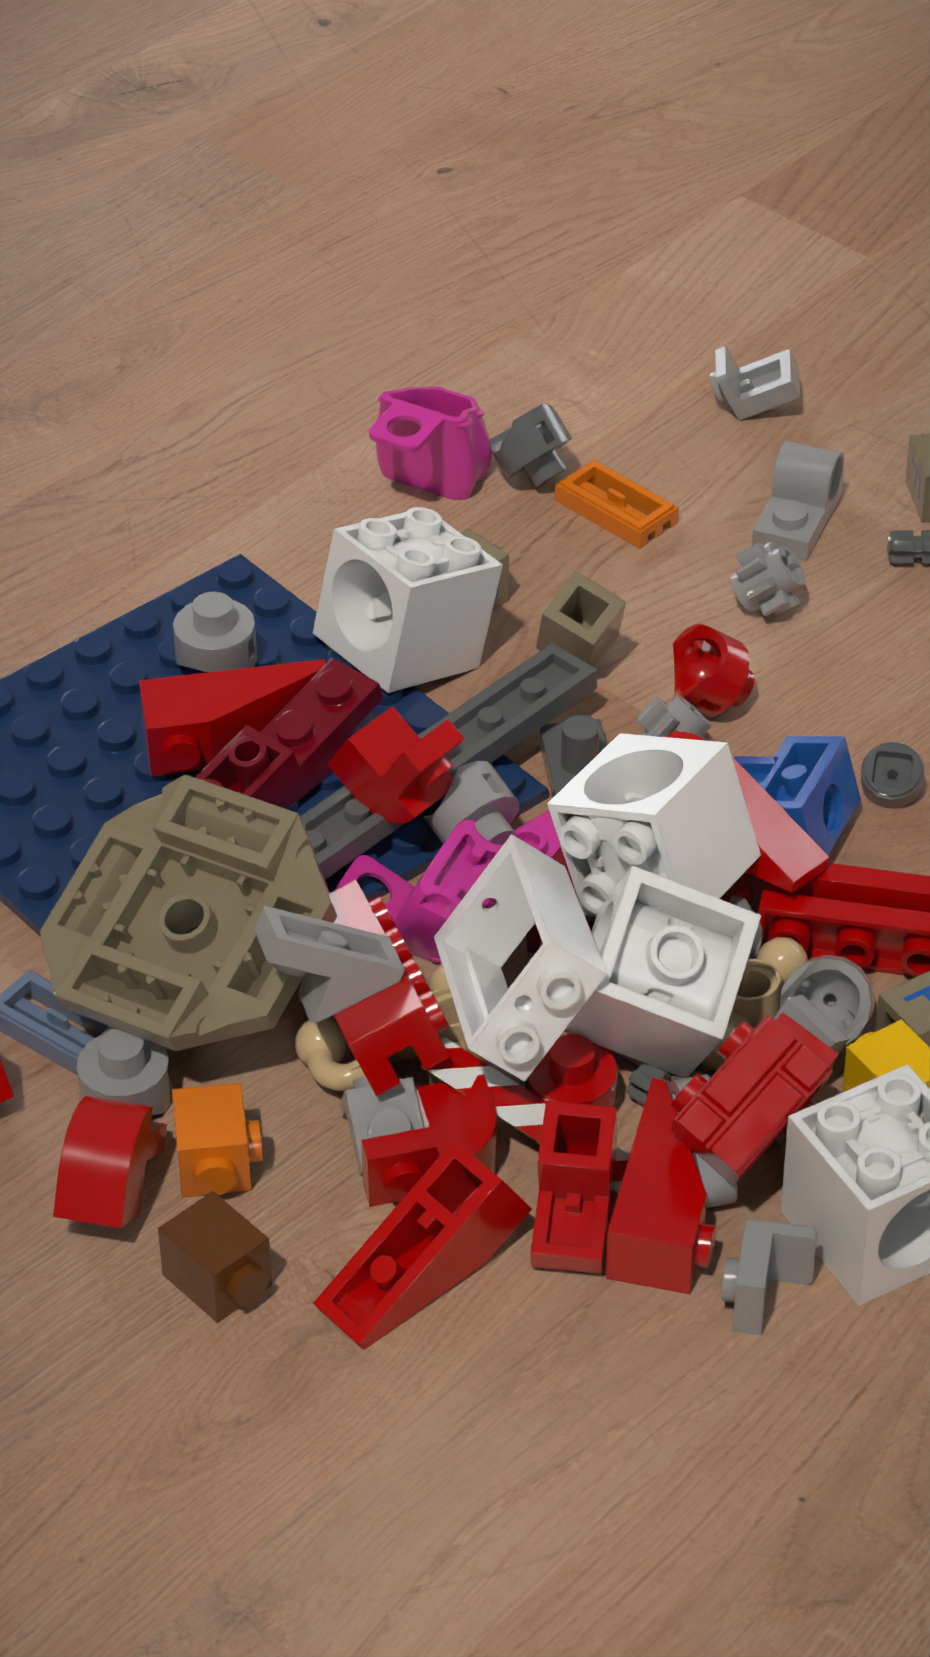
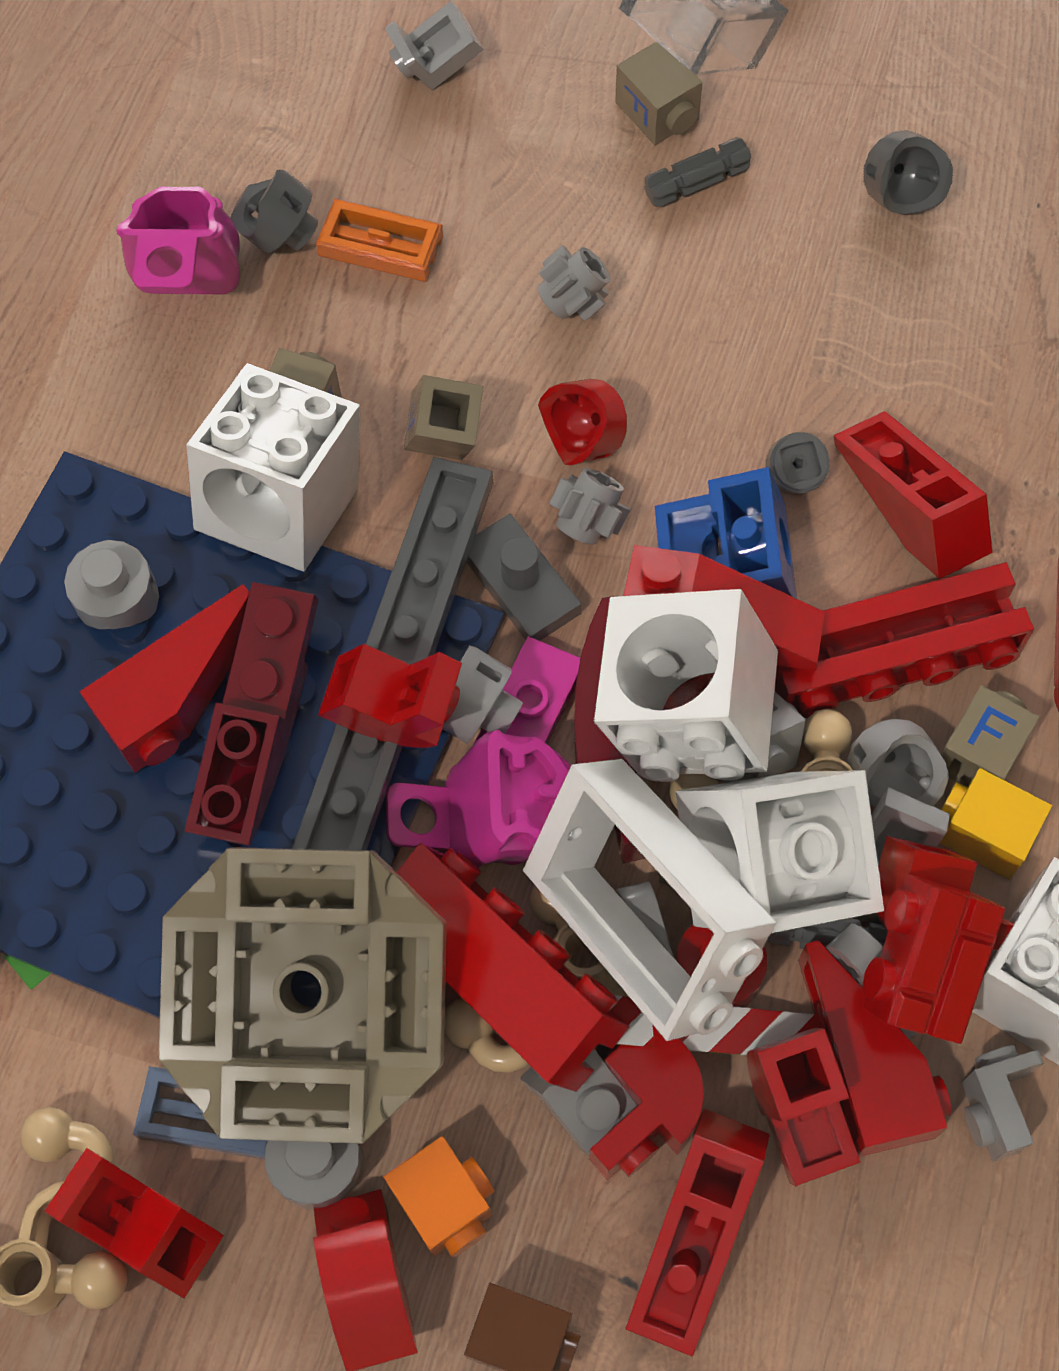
camera: 25 degrees left, 25 degrees up
(336, 960) = (478, 995): light grey slope -> none
(803, 497) = (546, 174): light grey plate -> none

